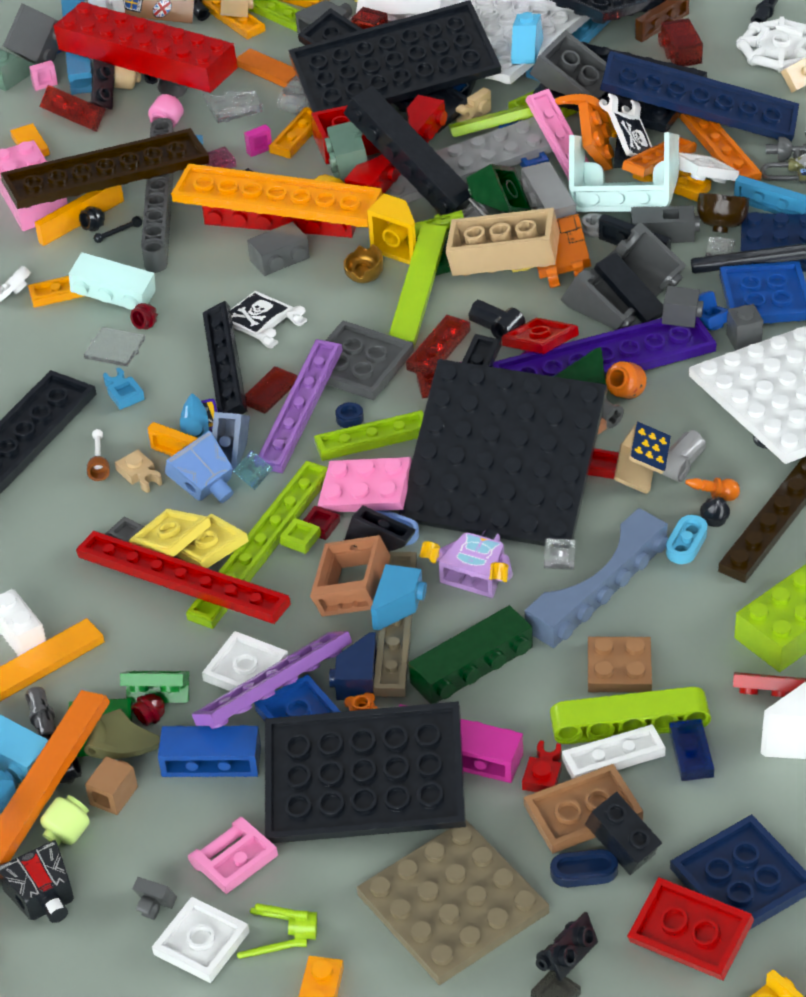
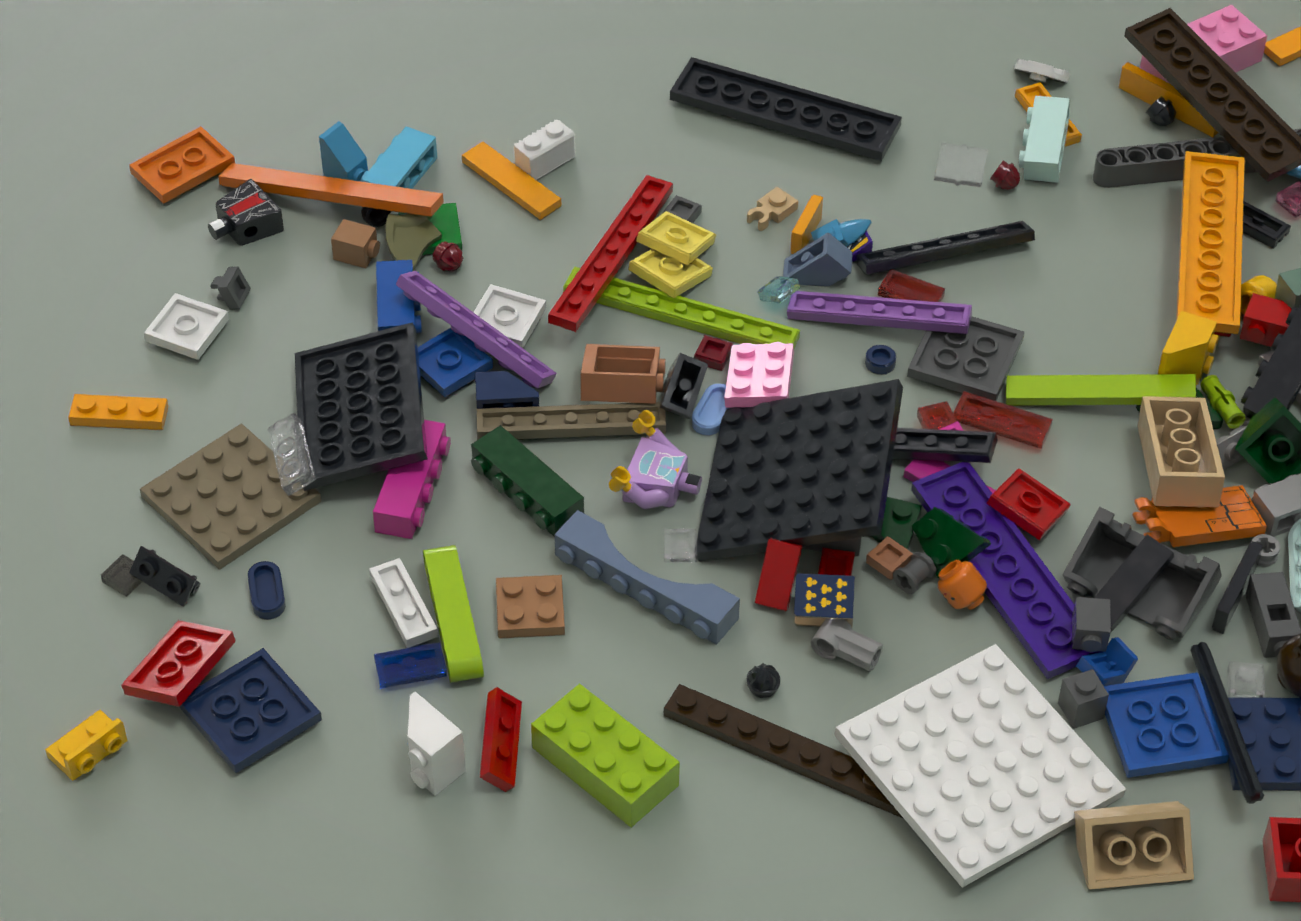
camera: 80 degrees right, 5 degrees up
(41, 713) = (448, 185): dark grey pin -> none
(65, 820) = (313, 219): yellowish green head -> none
(98, 467) = (769, 175): dark orange hinge -> none
(123, 391) = (885, 178): dark azure plate -> none
(136, 222) = (1138, 125): black hinge -> none
(169, 685) = (471, 250): bracket -> none
(202, 469) = (763, 246): medium blue torso -> none
(239, 860) = (275, 343): bright pink plate -> none
(260, 313) = (1031, 268): flag -> none
(278, 248) = (1142, 266): dark grey brick -> none
(300, 535) = (686, 336): lime plate -> none
(300, 923) = (199, 390): lime plant -> none
(360, 702) = (459, 408): orange plate -> none
(364, 264) = (1127, 340): pearl gold hair -> none
(369, 435) = (839, 361): lime tile -> none
(397, 595) = (586, 405): dark azure slope -> none
(424, 828) = (291, 454): none -> clear plate
(495, 319) = (1058, 464): black piece -> none
(543, 770) = (384, 548): red plate -> none
(564, 808) = (333, 582): medium nougat plate -> none
(609, 484) = (778, 574): none -> red tile
(623, 833) = (285, 602): black hinge -> none
(686, 539) = (714, 655): medium azure plate -> none
(725, 488) = (805, 693): orange bar -> none

